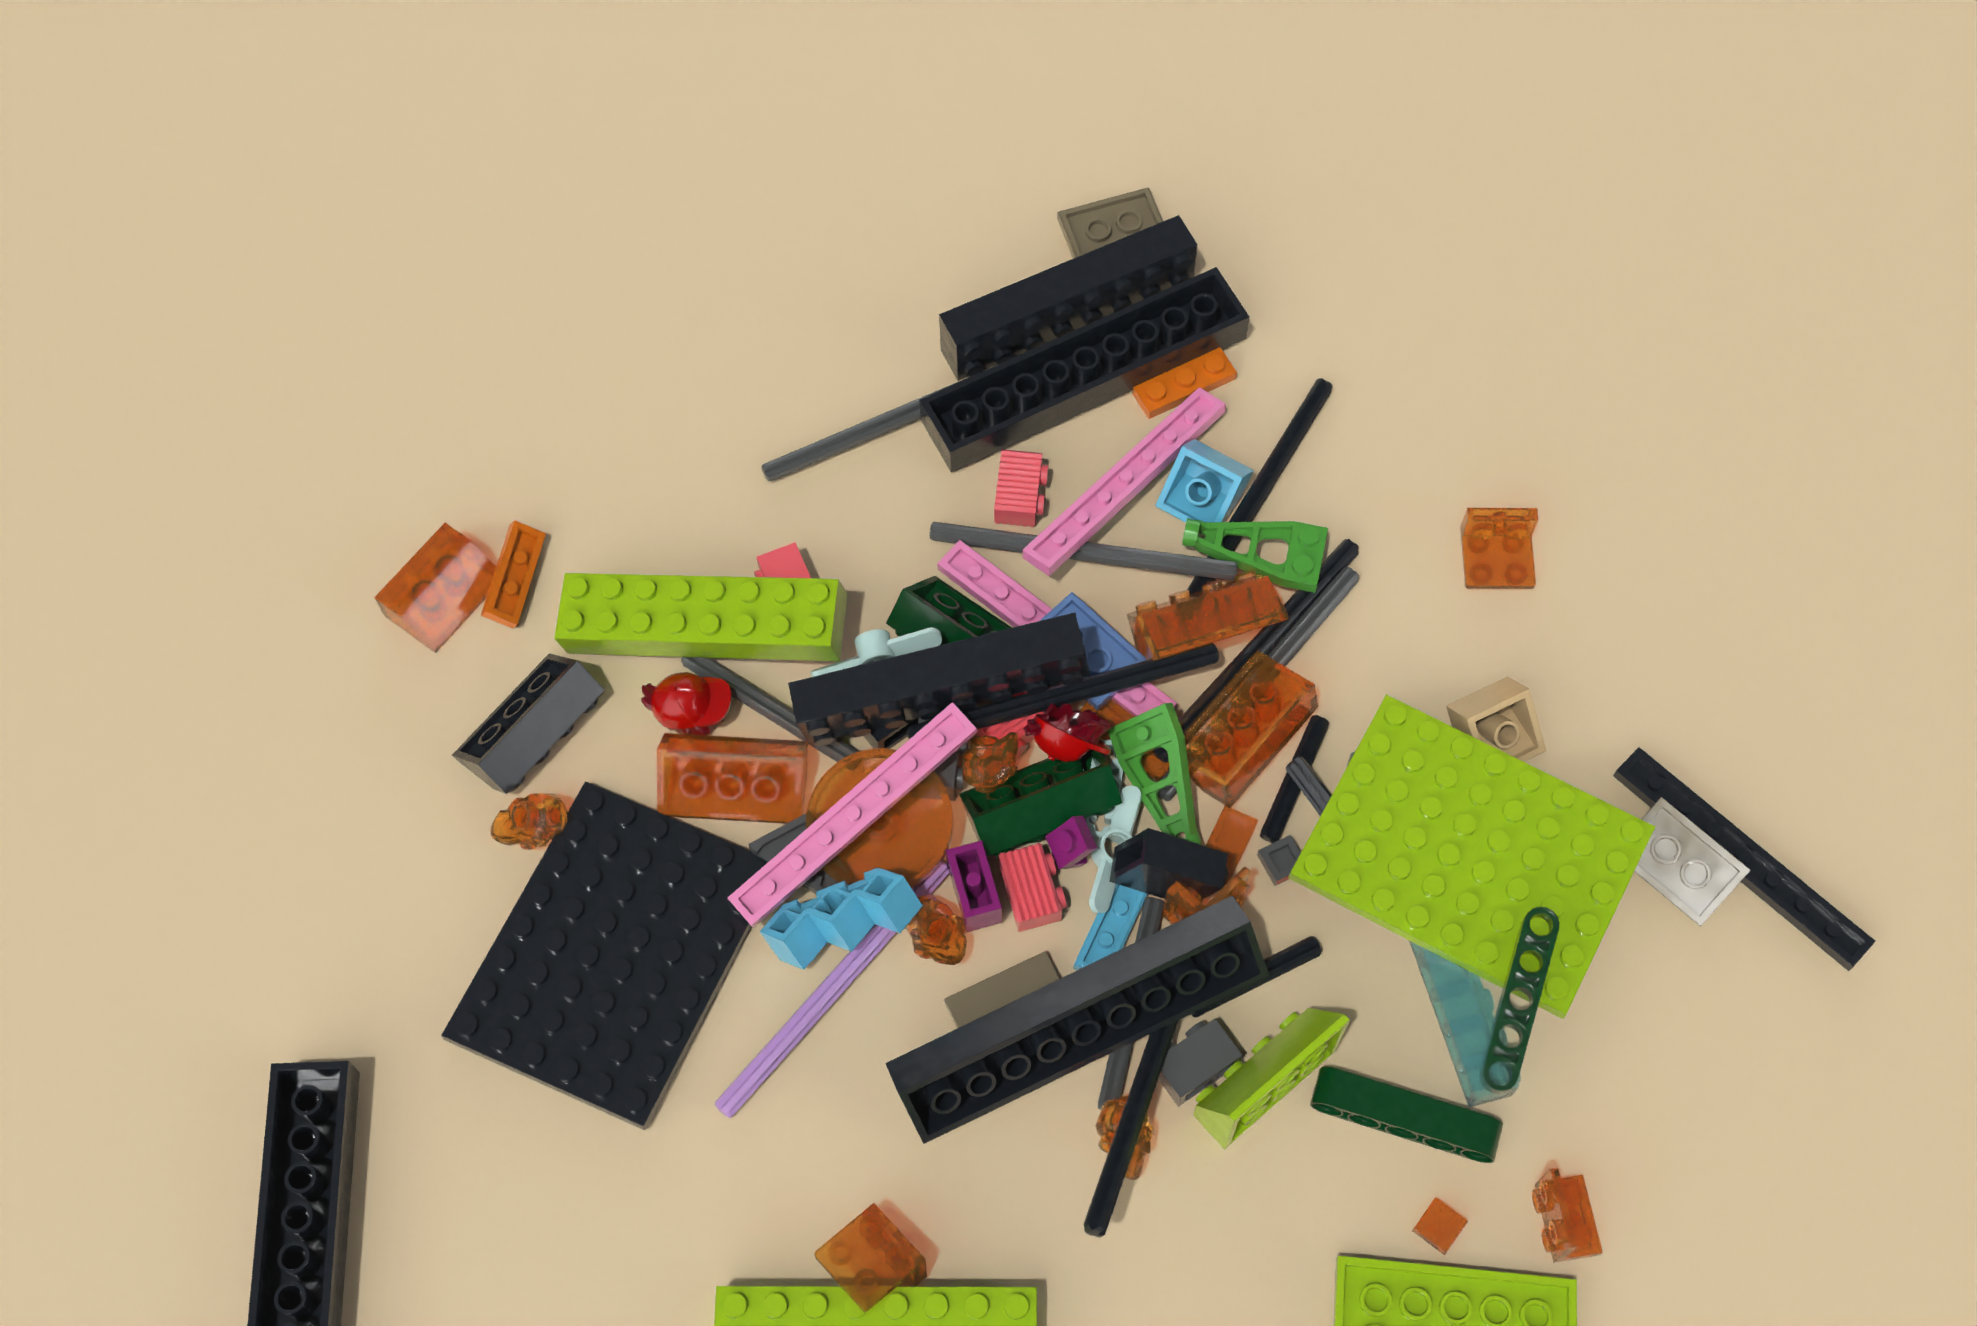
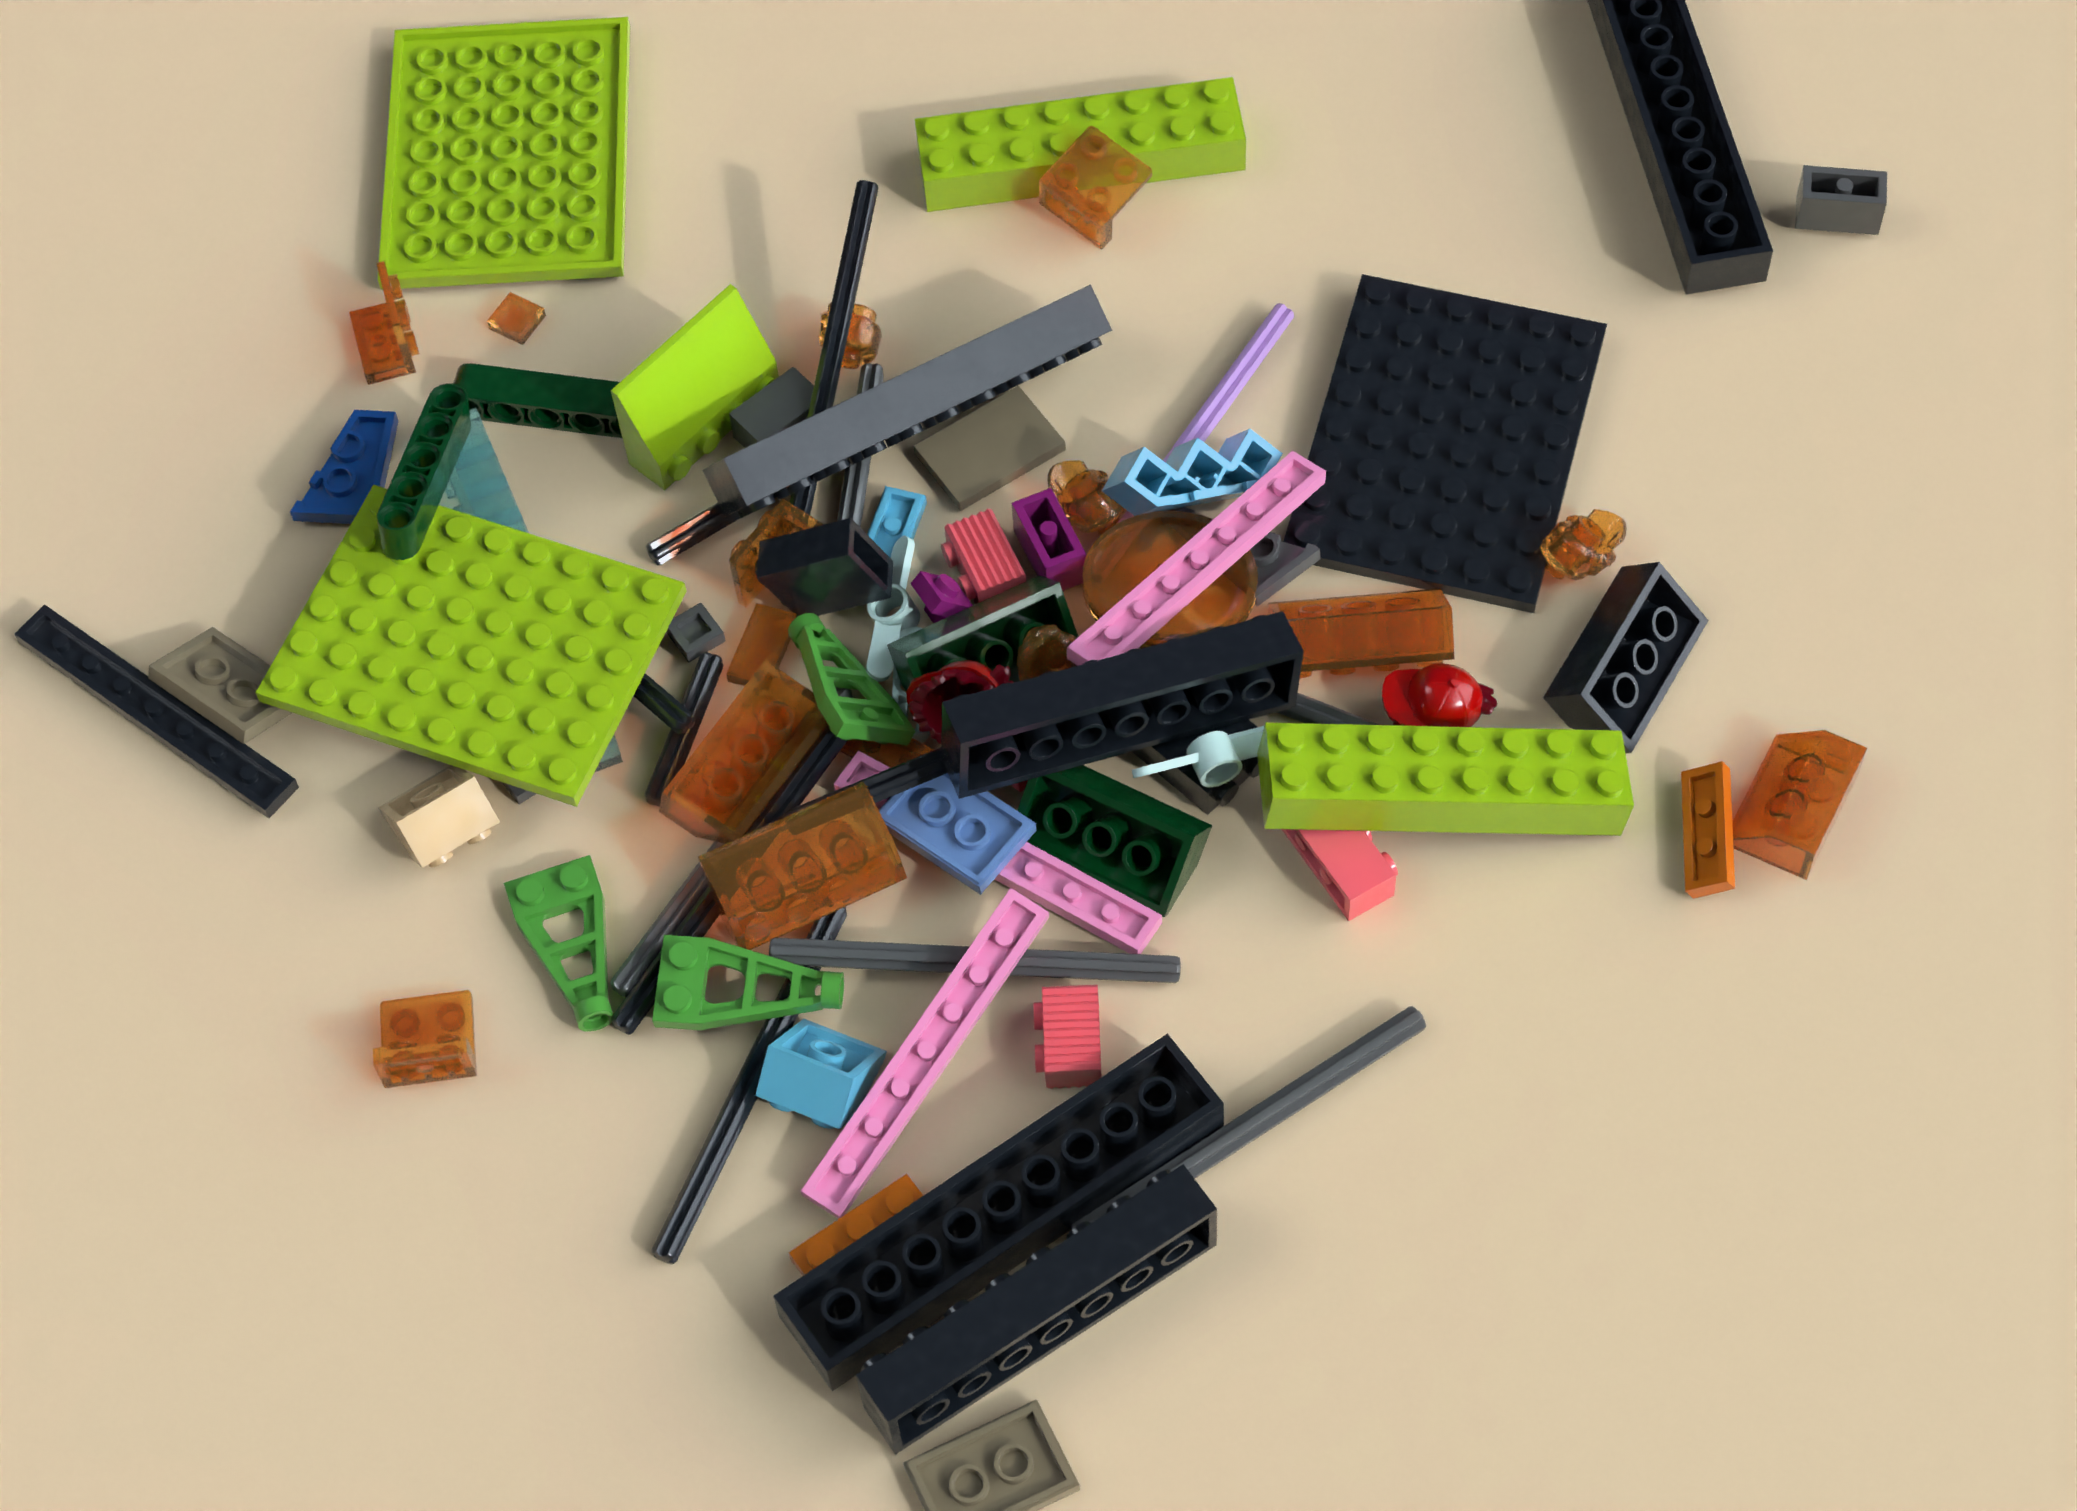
camera: 175 degrees right, 5 degrees down
(185, 1132) = (1841, 200): none -> dark grey brick
(1396, 658) = (553, 893): none -> bright green plate
(1586, 1067) = (356, 464): none -> blue wing

